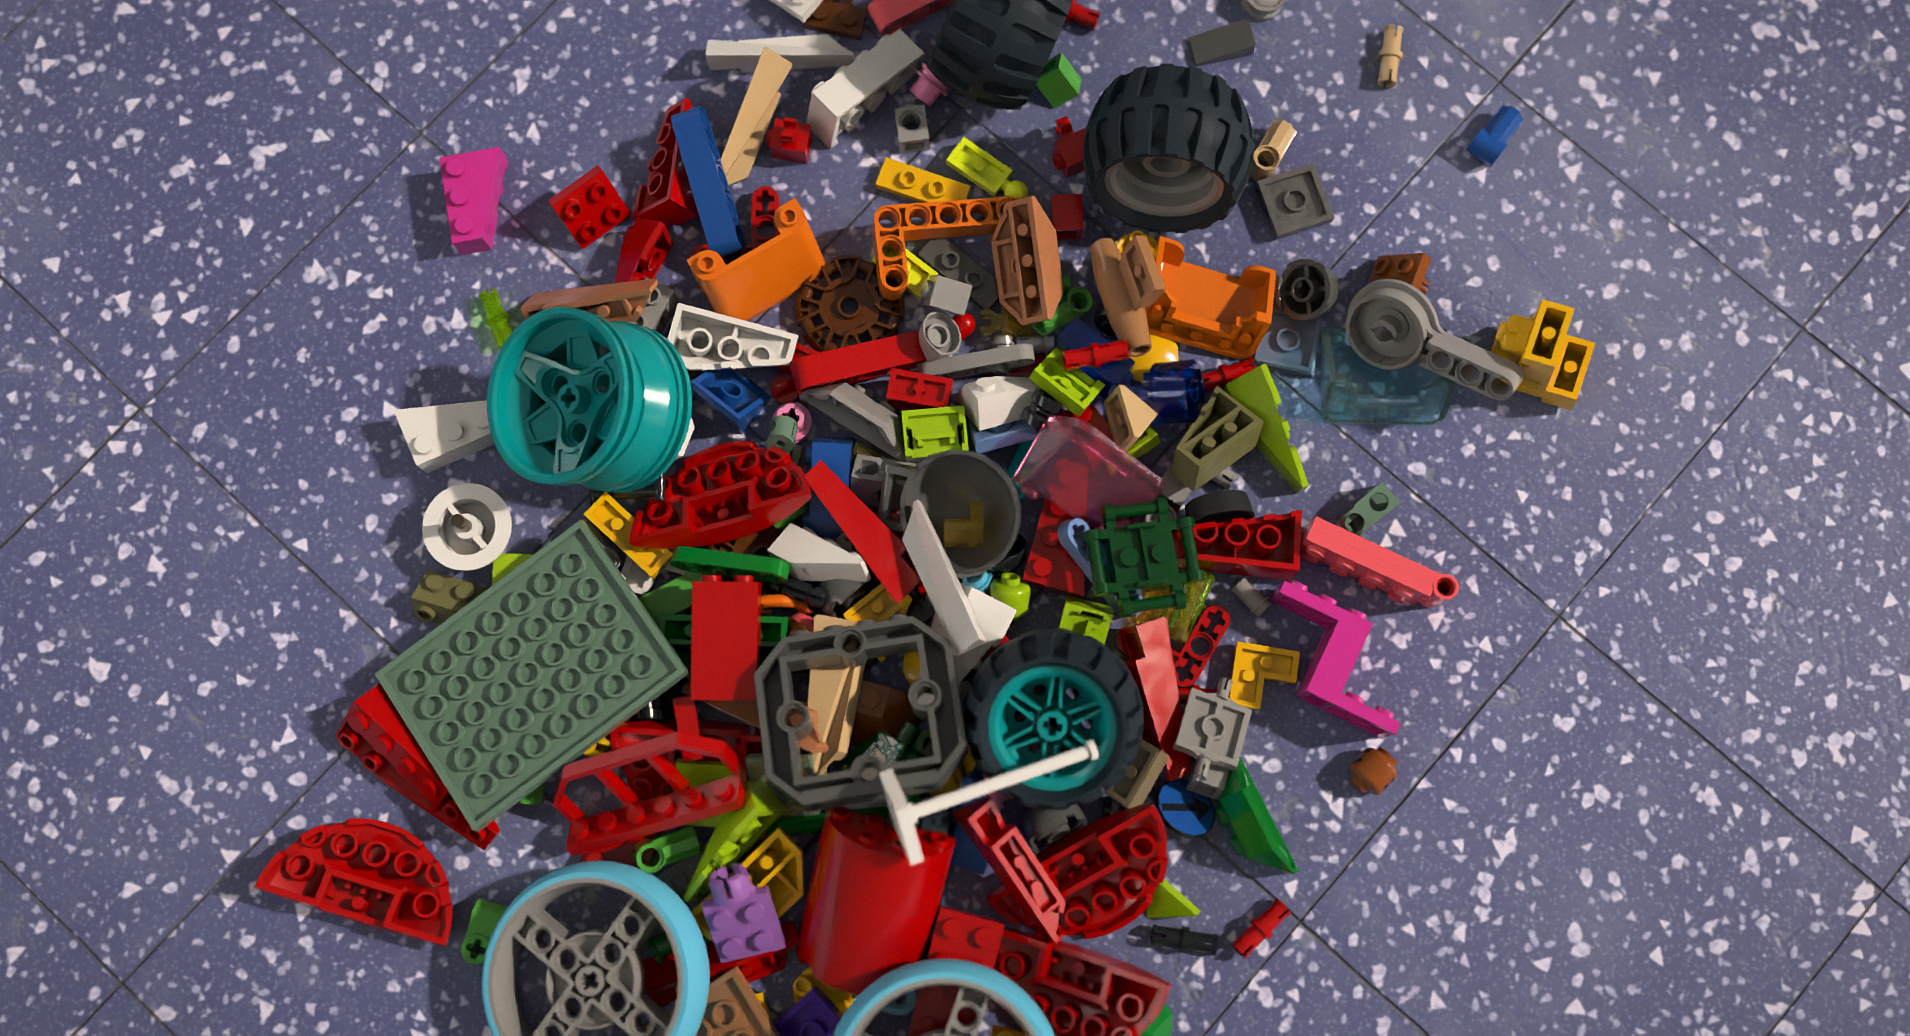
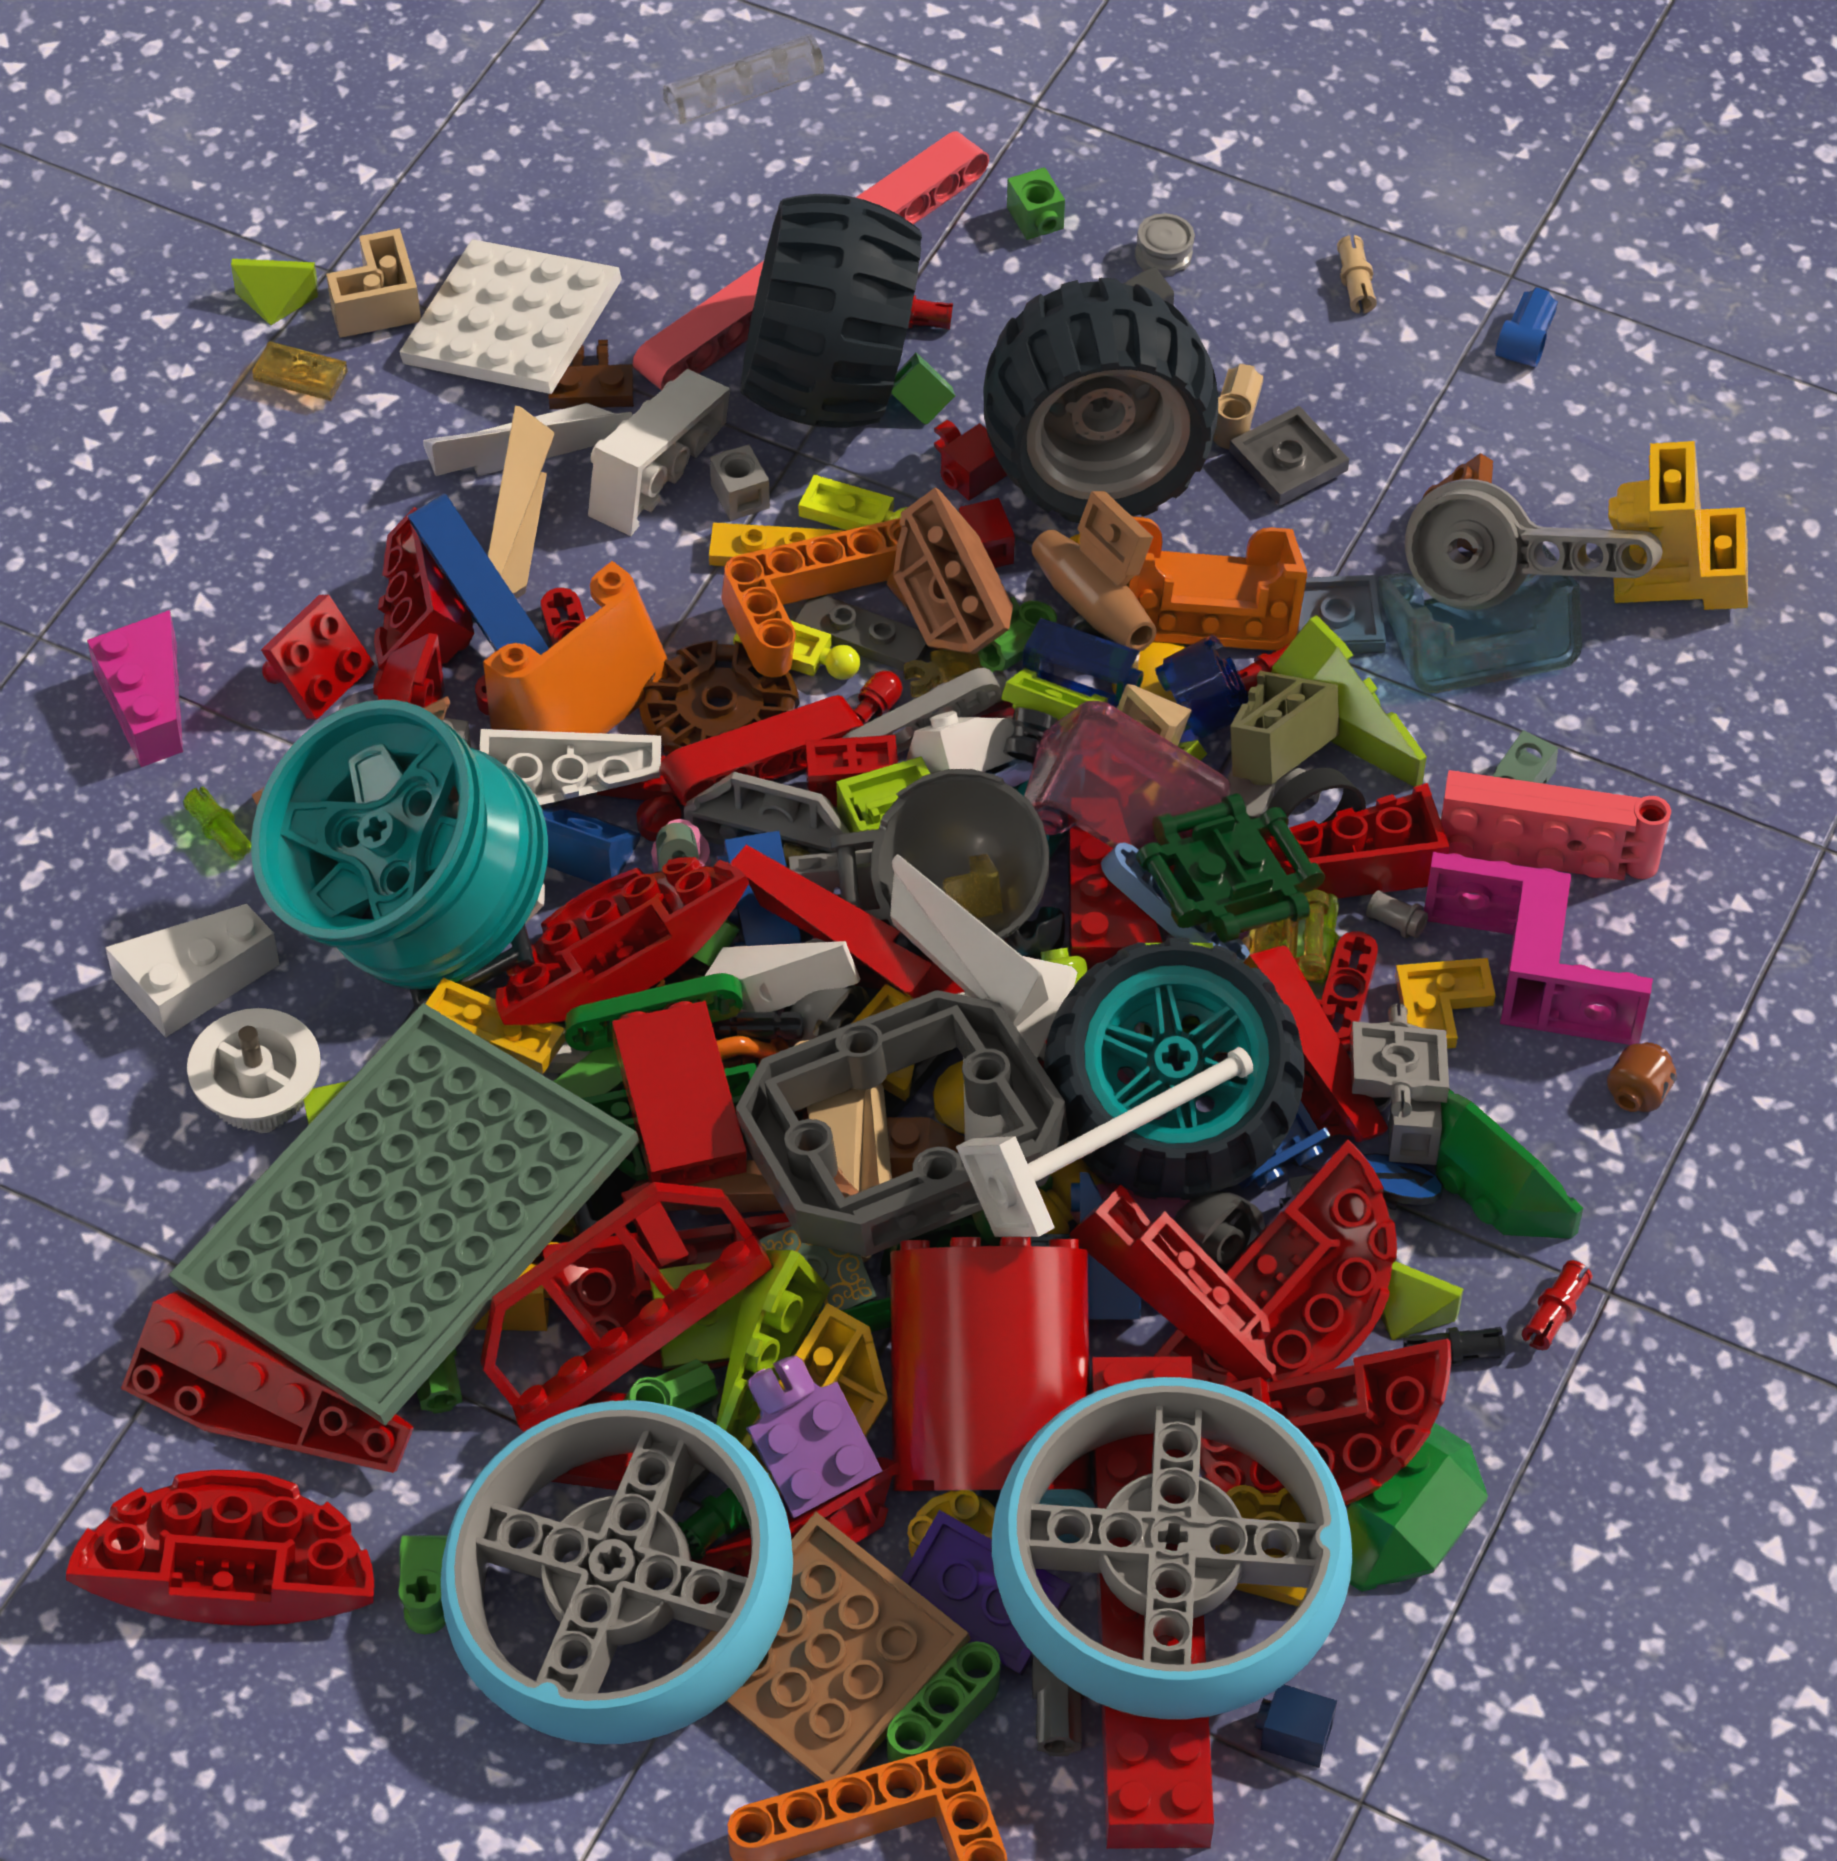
camera: 15 degrees left, 25 degrees down
(442, 596) = (227, 1173): olive bracket -> none
(790, 140) = (573, 528): red brick -> none
(927, 86) = (748, 424): bright pink piece -> none
(939, 335) = (857, 695): light grey hat -> none
(946, 294) = (852, 645): light grey brick -> none
(1095, 355) = (1083, 648): red pin -> none
(1140, 776) = (1313, 1135): dark tan slope -> none
(1306, 290) = (1342, 539): dark grey cylinder -> none

